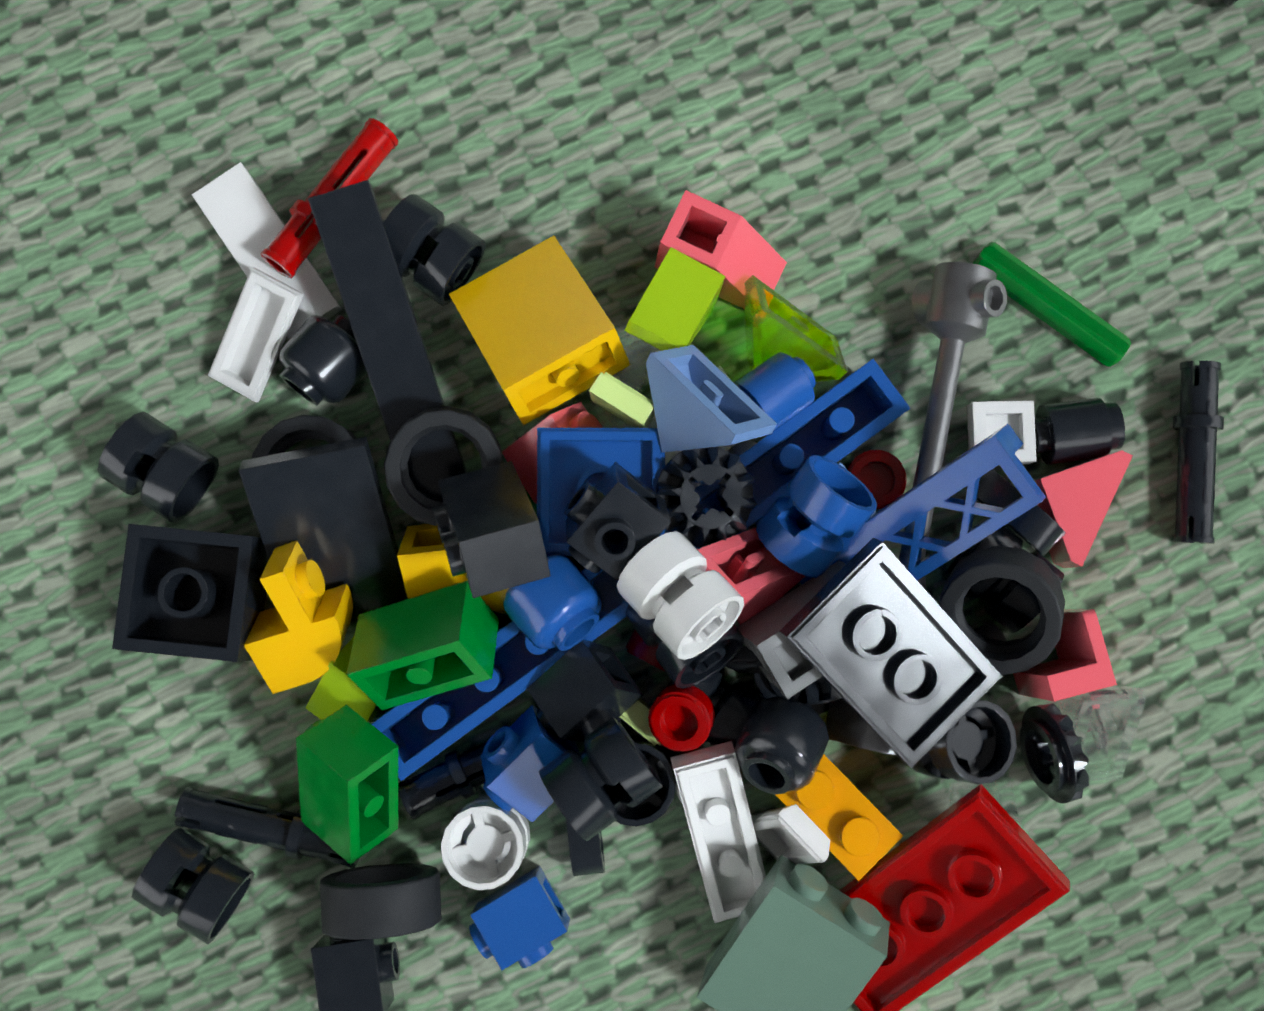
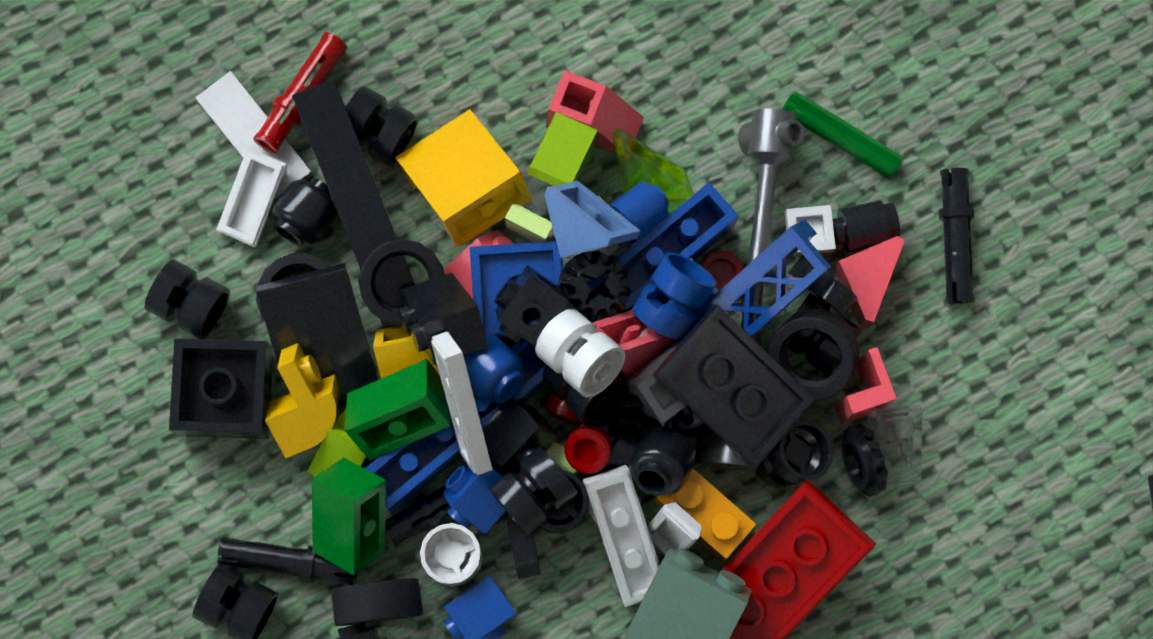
camera: 10 degrees left, 5 degrees down
(506, 651) = (461, 403): none -> white tile

